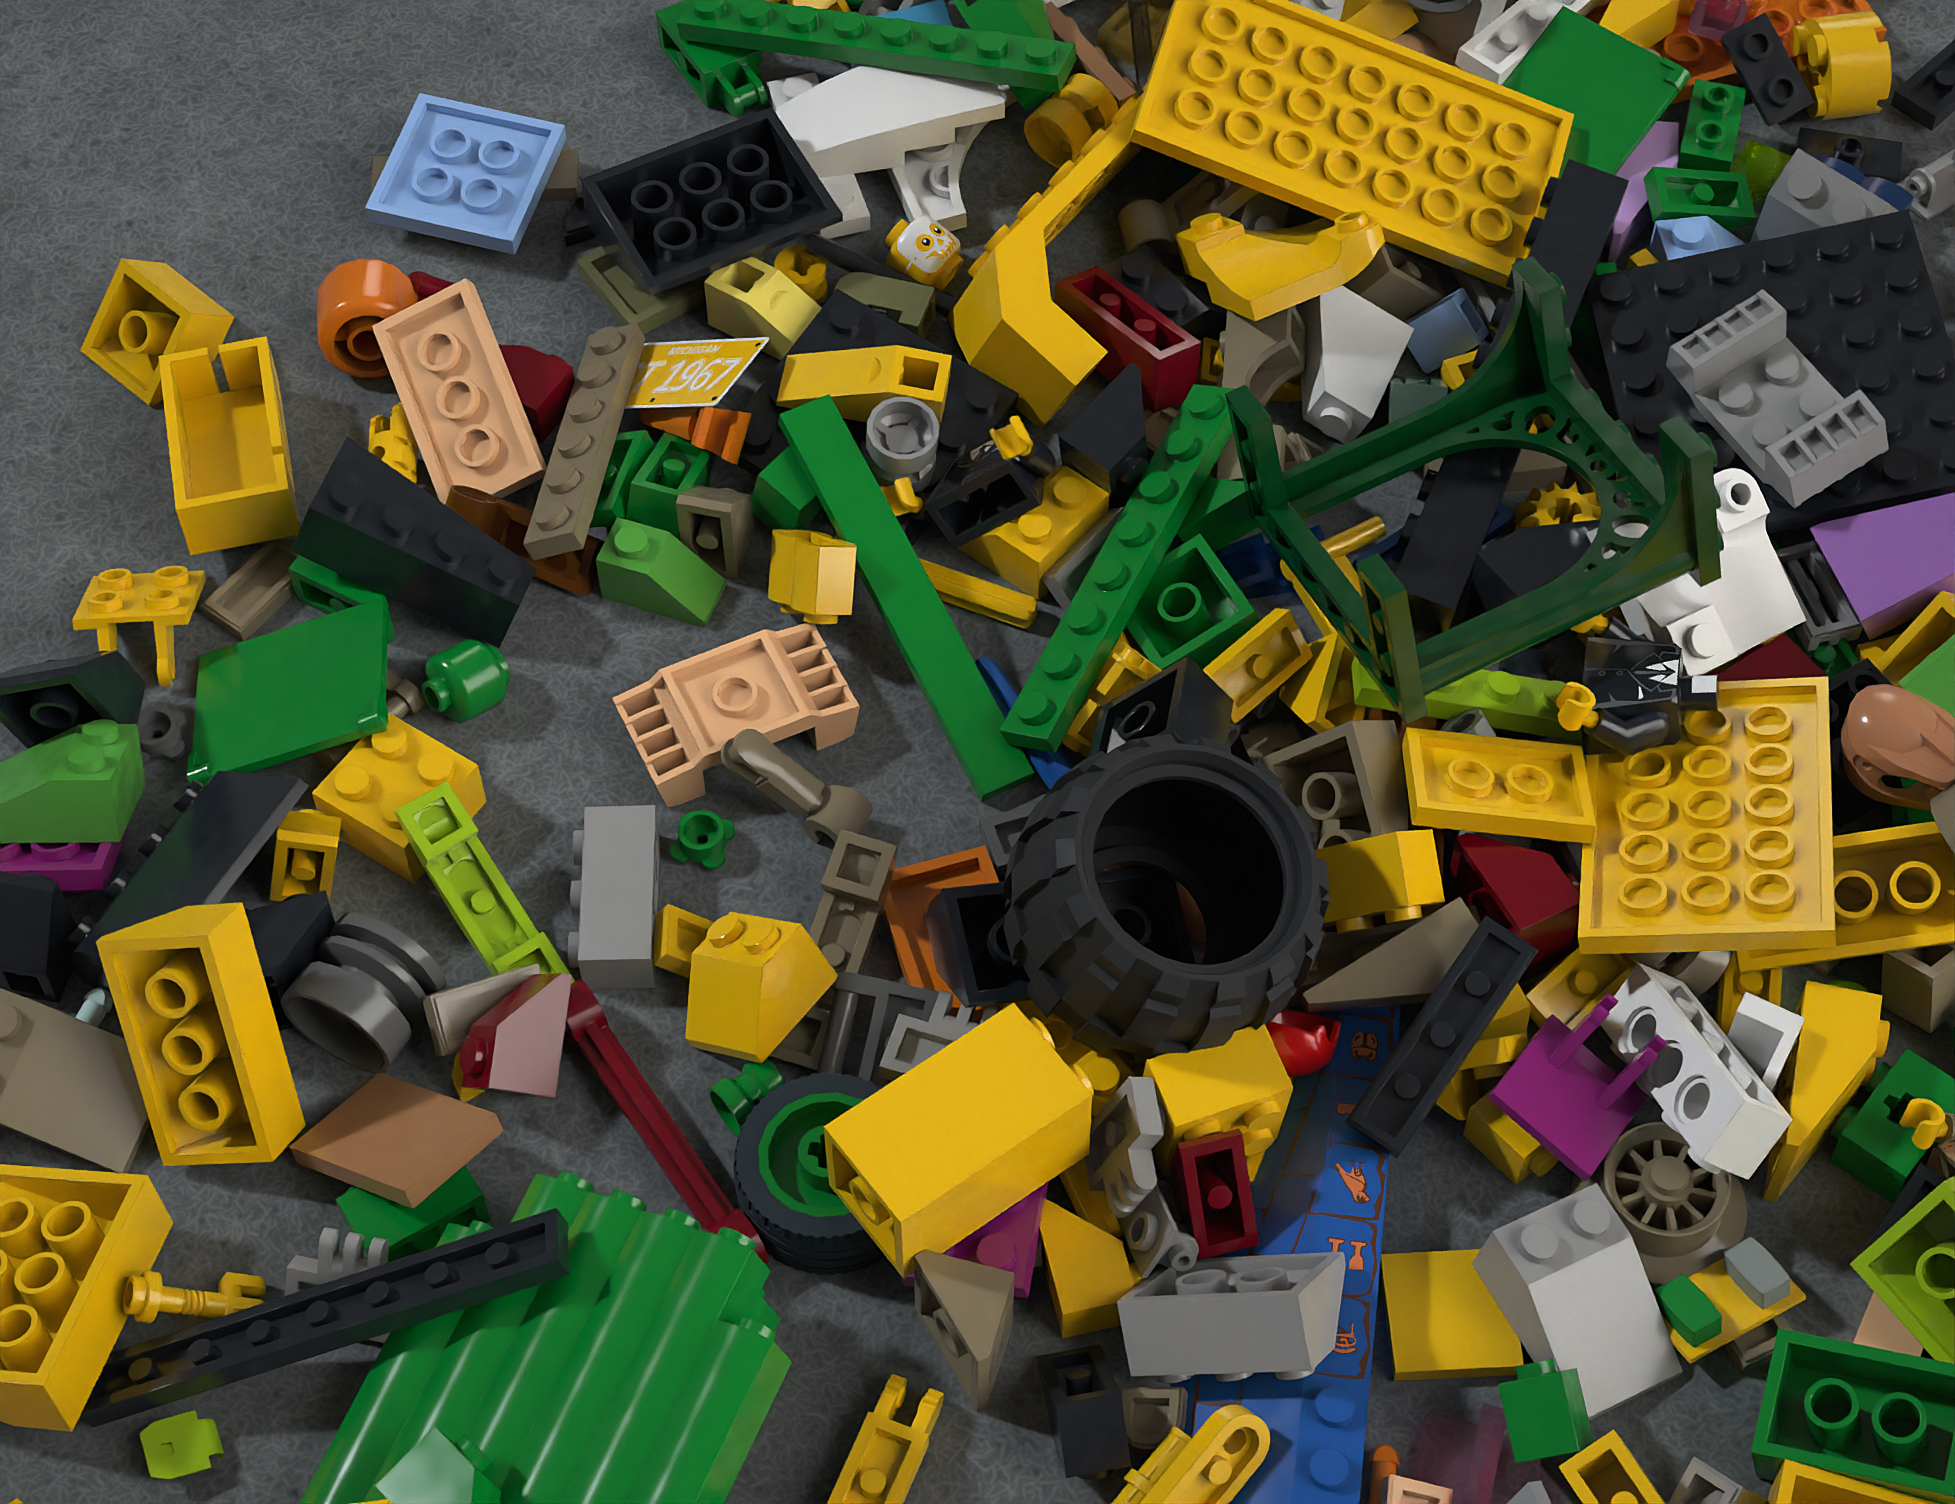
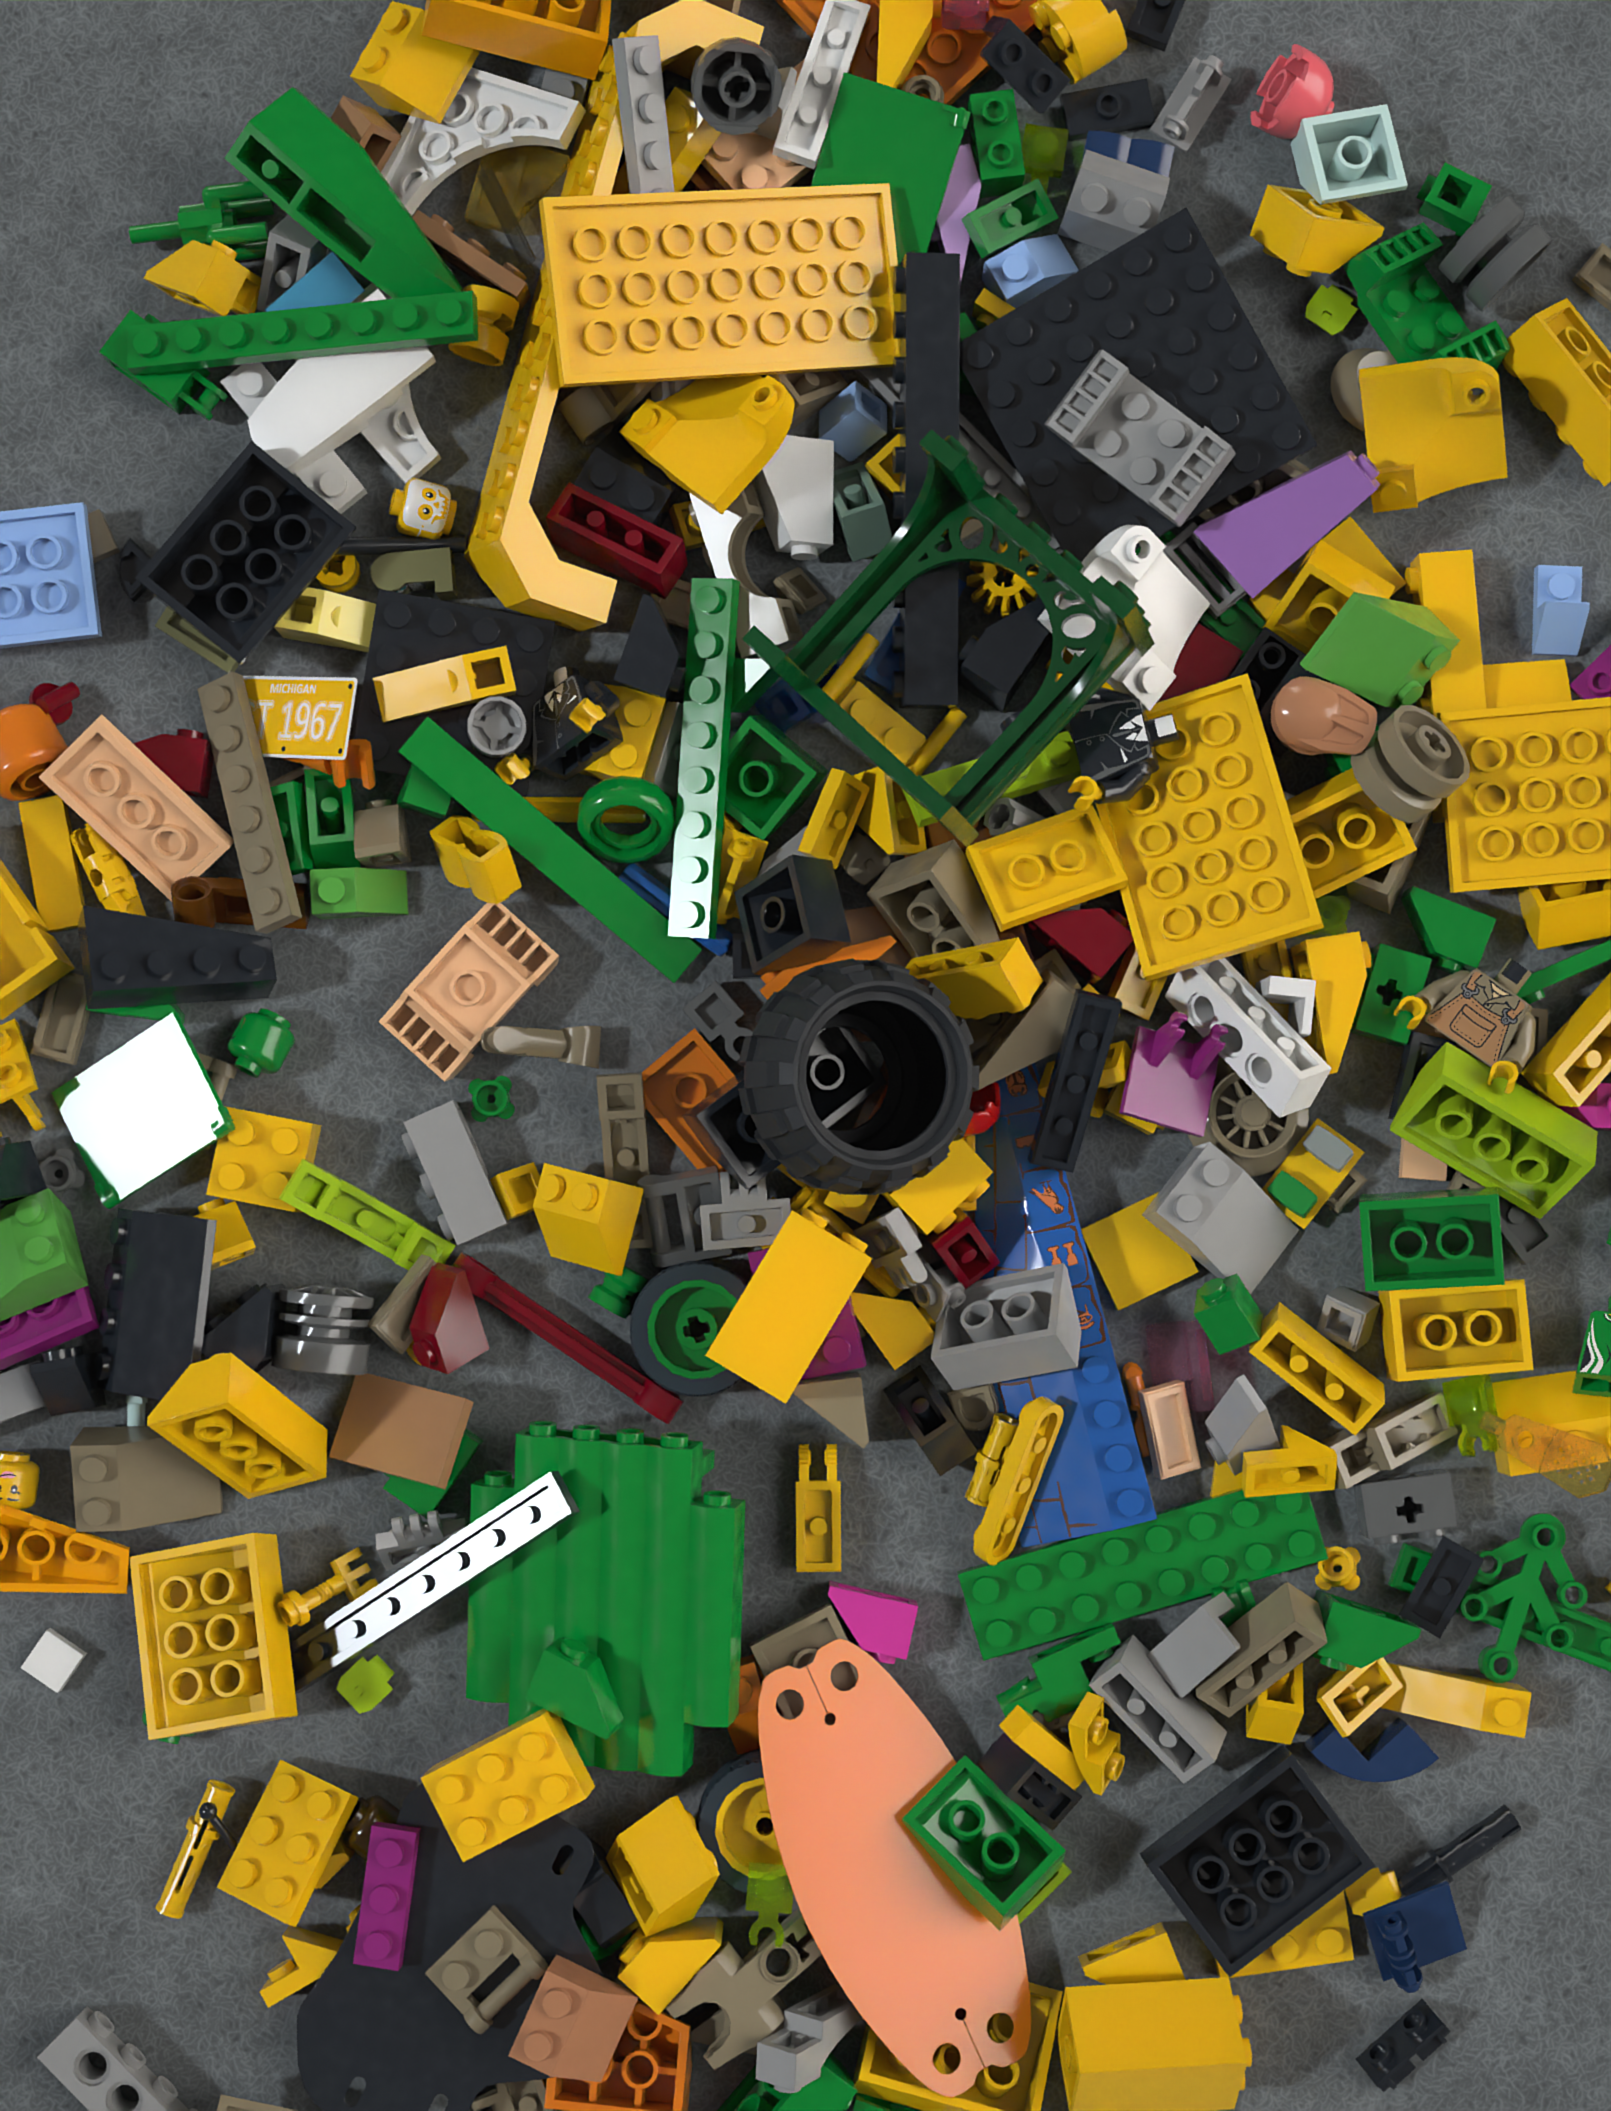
camera: 25 degrees left, 30 degrees up
(344, 412) = (52, 862): none -> yellow tile
(1037, 567) = (630, 792): none -> green wheel

